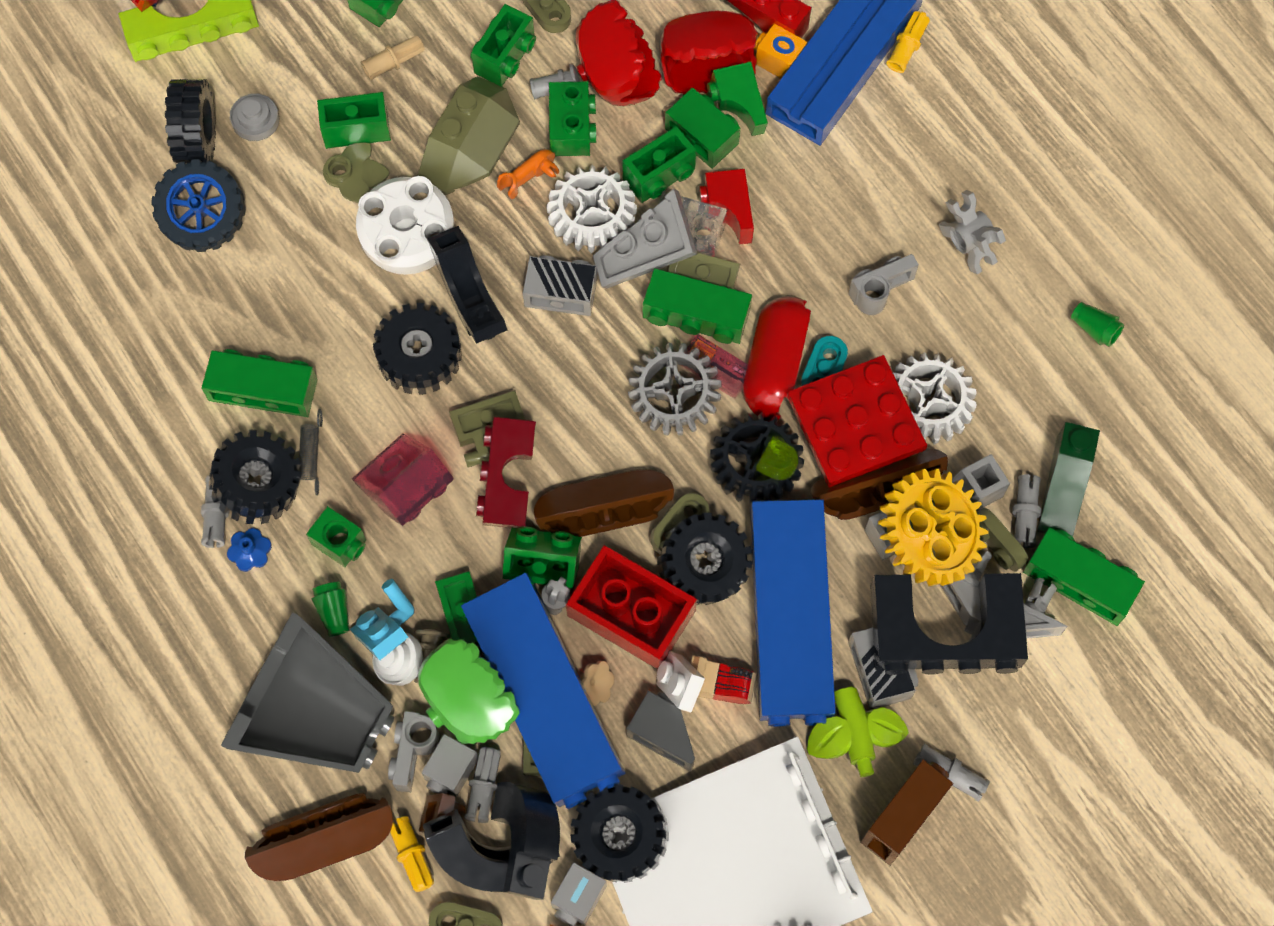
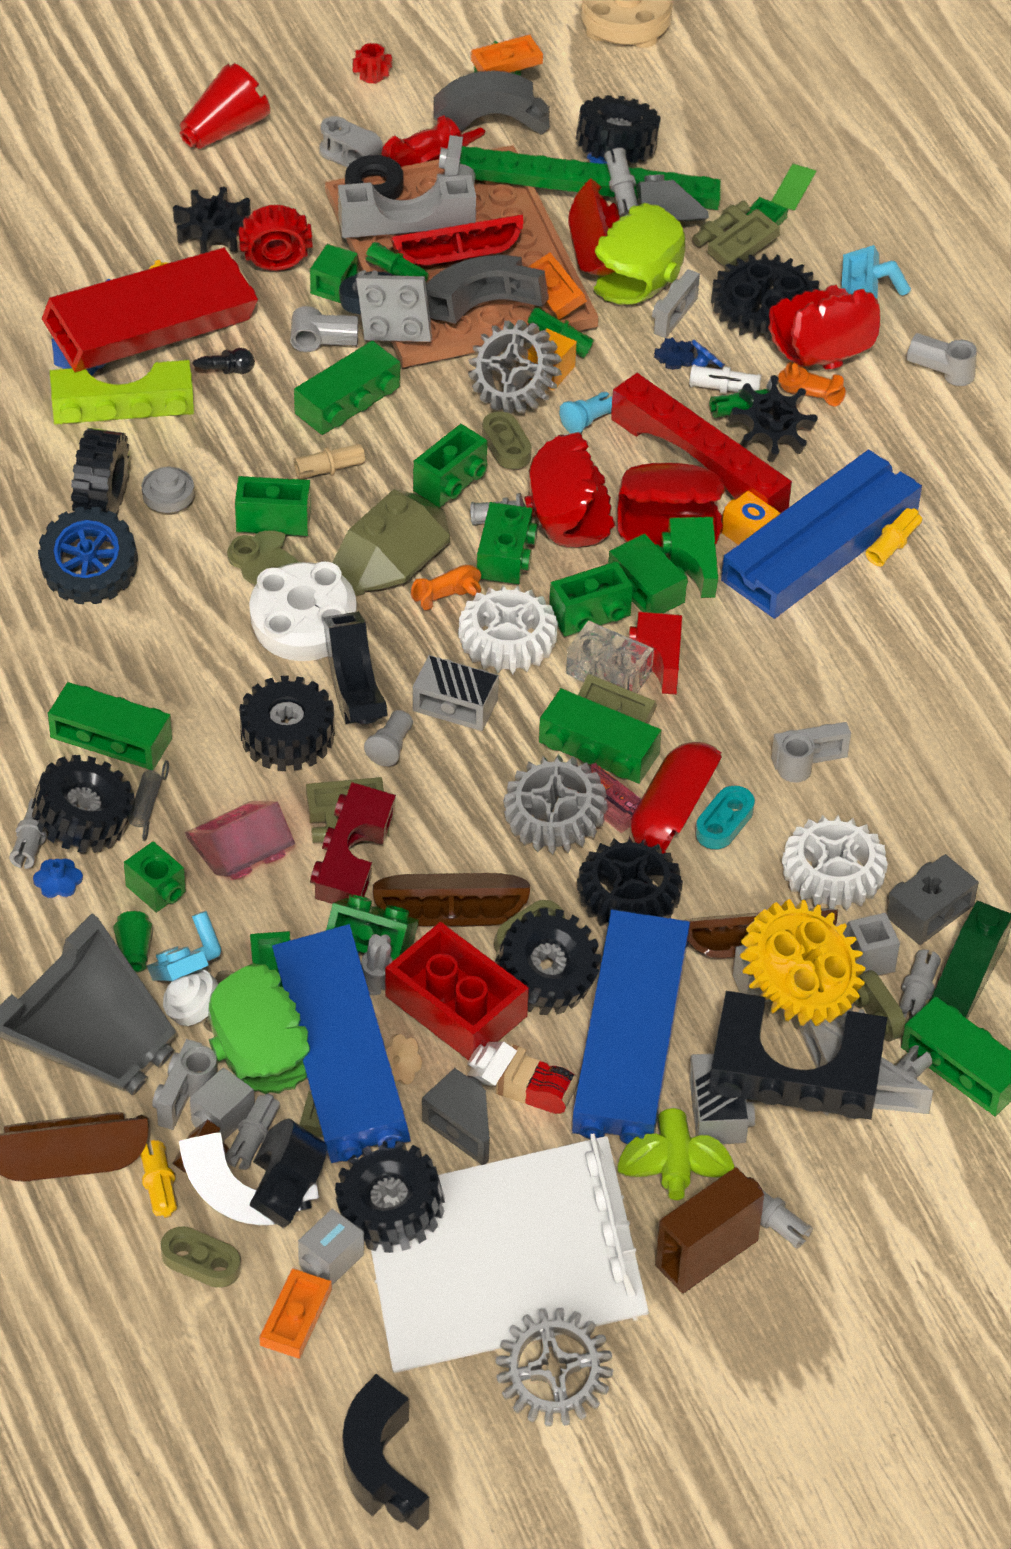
camera: 10 degrees right, 20 degrees down
(511, 349) = (387, 742): none -> light grey pin
(651, 243) = (567, 663): light grey wing -> none
(778, 460) = (650, 881): clear neon green tile -> none
(856, 421) = (745, 860): red plate -> none
(972, 232) = (917, 713): light grey pin -> none
(1015, 436) = (932, 899): none -> dark grey brick

